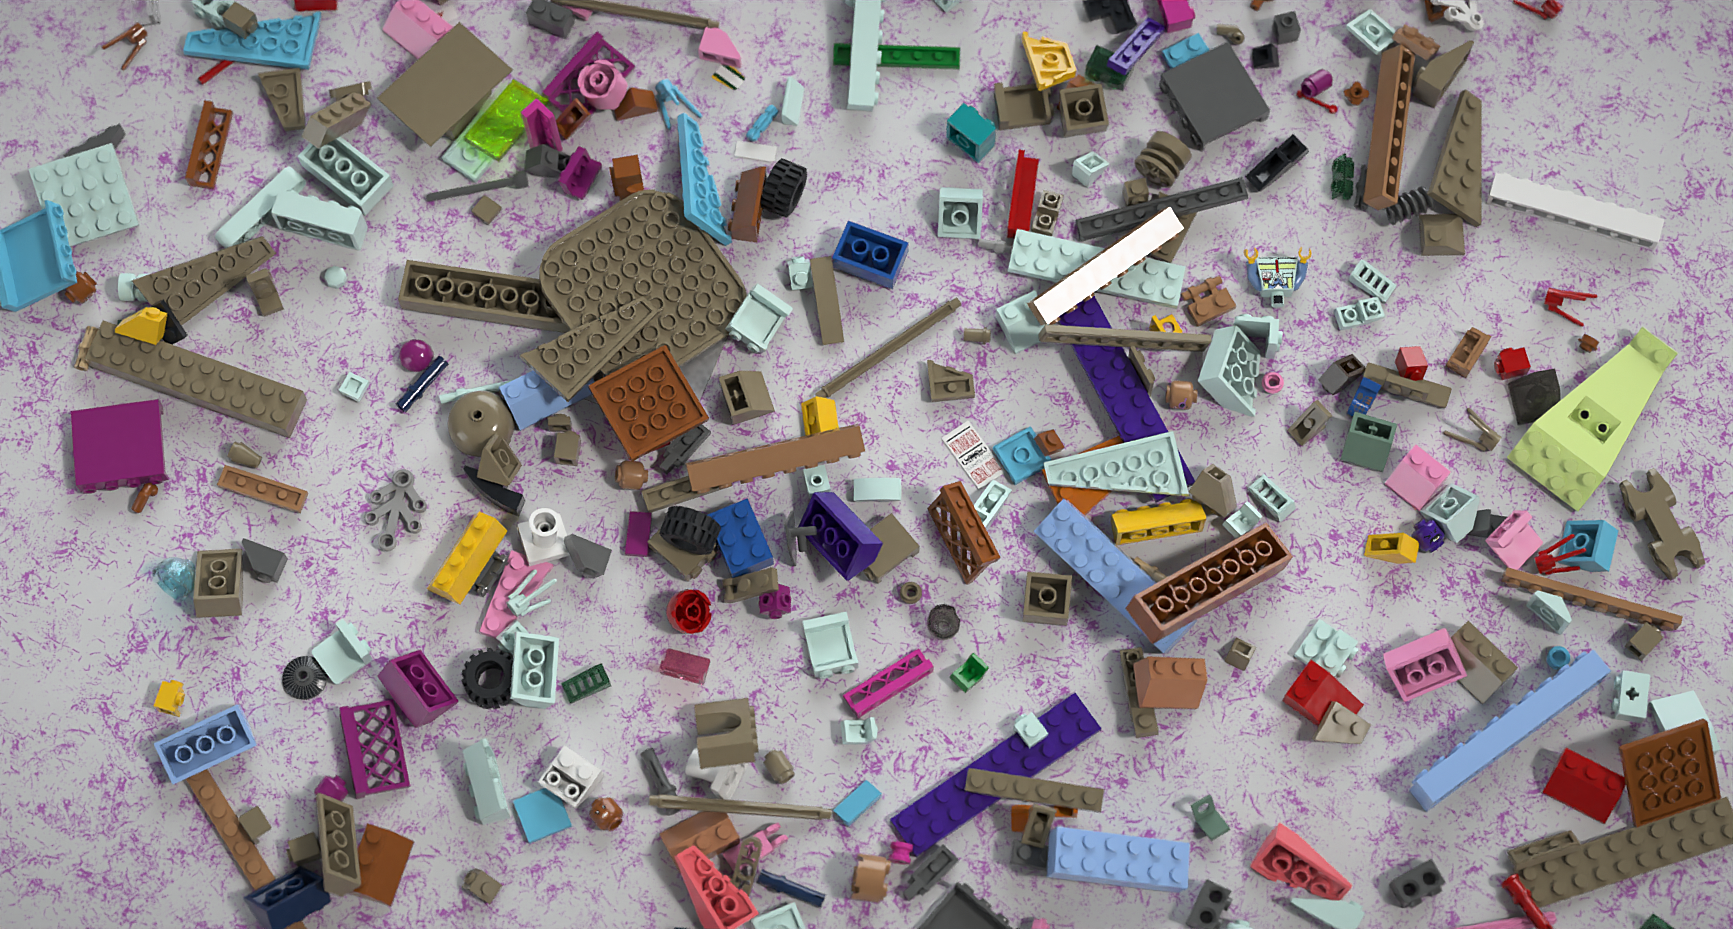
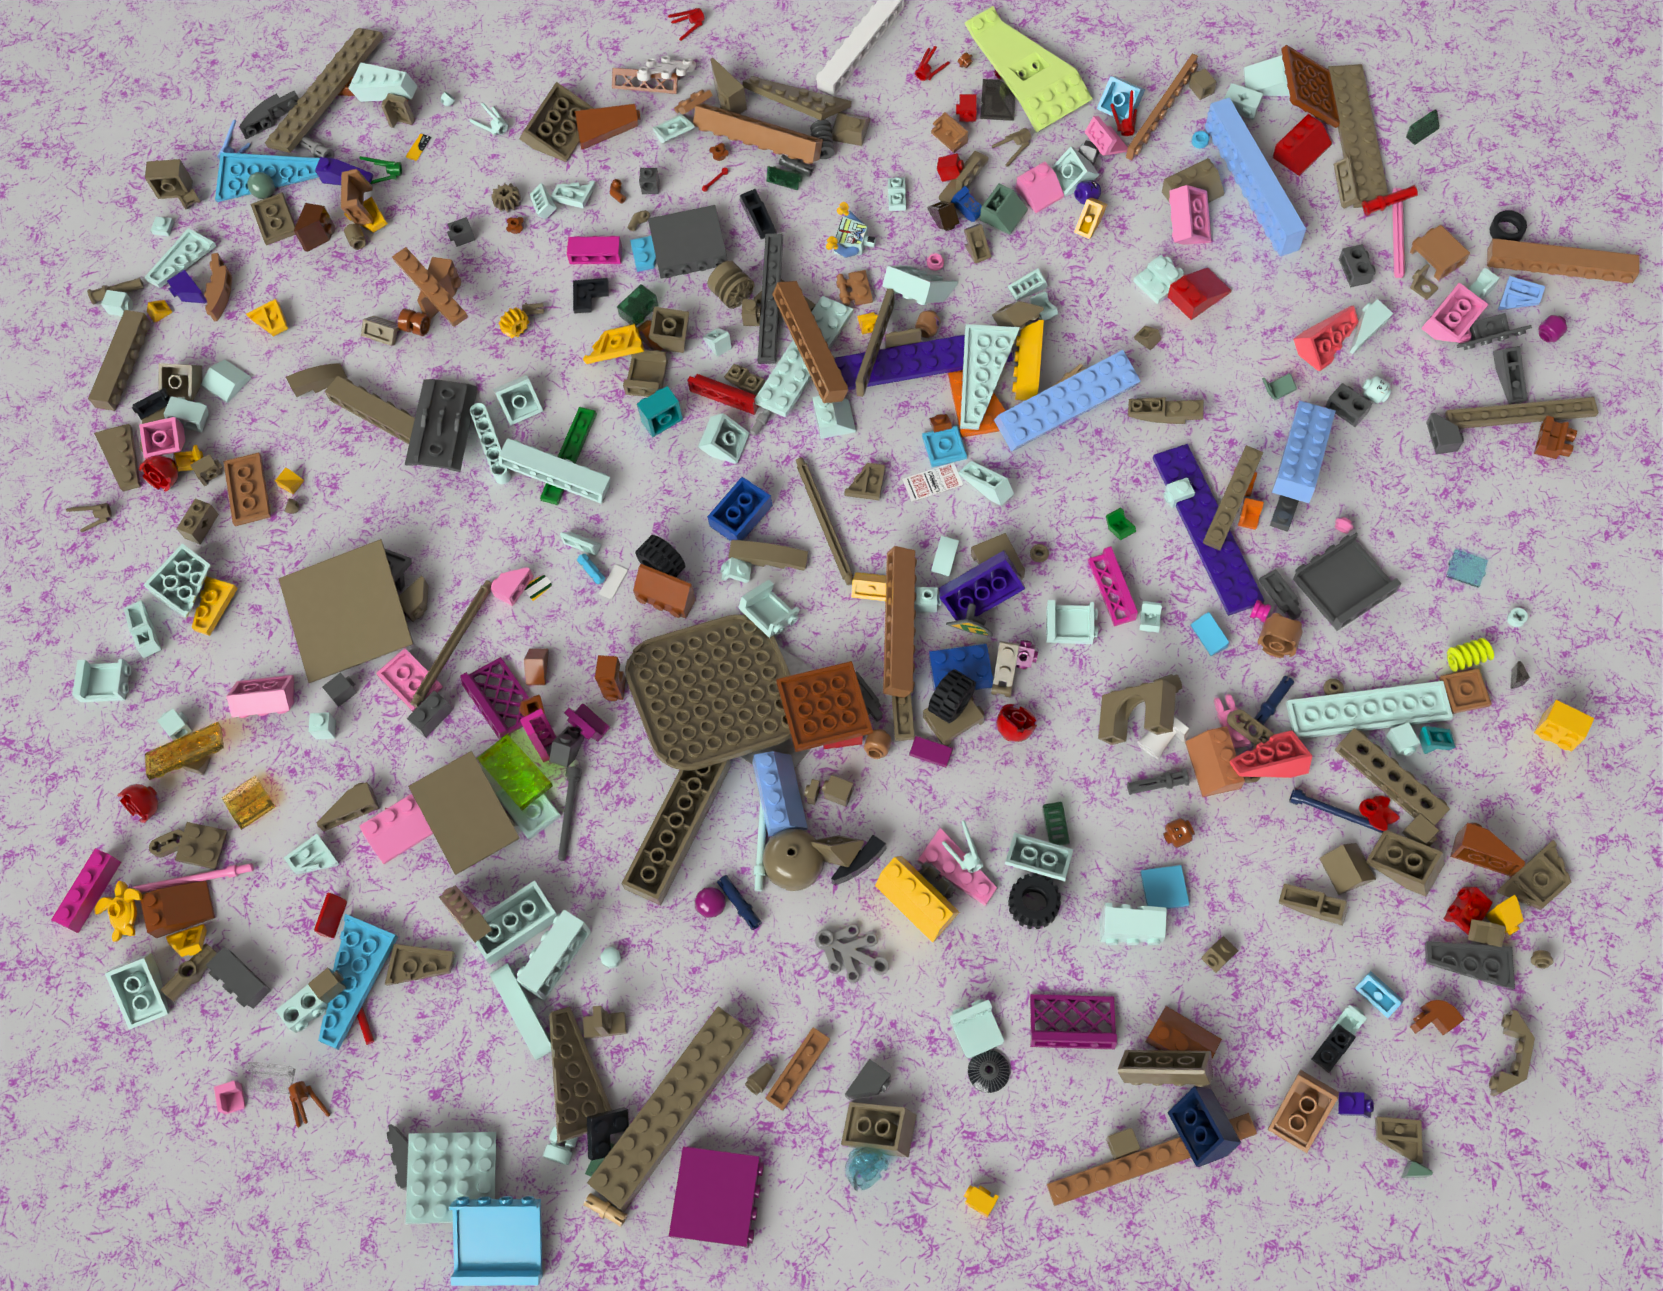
camera: 70 degrees left, 5 degrees down
(82, 289) = (548, 1200): dark orange head -> none
(143, 496) = (770, 1181): dark orange arm -> none
(144, 325) = (607, 1141): yellow slope -> none
(200, 145) = (434, 1052): dark orange fence -> none
(205, 744) = (1035, 1174): light blue slope -> none
(304, 849) = (1155, 1104): dark tan brick -> none
(332, 787) = (1106, 1067): magenta head -> none
(341, 92) = (433, 911): dark tan plate -> none
(354, 386) = (723, 963): light aqua plate -> none
(417, 688) = (1026, 969): magenta slope -> none
(486, 209) = (591, 811): dark tan tile -> none
(507, 637) = (1000, 875): light aqua bracket -> none
(543, 537) = (915, 826): white plant -> none
(571, 777) = (1140, 853): white slope -> none
(582, 352) = (764, 749): dark tan wing -> none
(587, 555) = (943, 794): dark grey slope -> none
(602, 85) = (524, 681): bright pink brick -> none
(668, 92) = (535, 635): medium azure plant -> none
(685, 666) = (1059, 741): clear pink panel -> none
(699, 187) = (642, 627): medium azure wing -> none
(740, 807) = (1197, 723): dark tan piece -> none
(745, 395) = (834, 637): dark tan slope -> none
(943, 622) = (1073, 533): clear smoke hair -> none
(971, 528) = (1003, 485): dark orange fence -> none
(977, 335) = (832, 454): dark tan pin -> none
(1038, 825) = (1266, 497): dark tan slope -> none
(1047, 598) = (1073, 452): dark tan brick -> none
(1136, 46) = (629, 279): plate -> none
(1170, 682) = (1165, 382): nougat slope -> none
(1209, 583) = (1098, 331): dark orange brick -> none
(1262, 327) = (898, 248): light aqua bracket -> none
(1265, 56) = (666, 203): black slope -> none
(1317, 83) = (702, 172): magenta brick -> none
(1341, 726) = (1224, 282): wing -> none
(1368, 287) = (872, 185): light aqua slope -> none
(1550, 610) = (1169, 128): light aqua slope -> none
(1656, 512) = (1103, 54): dark tan piece -> none

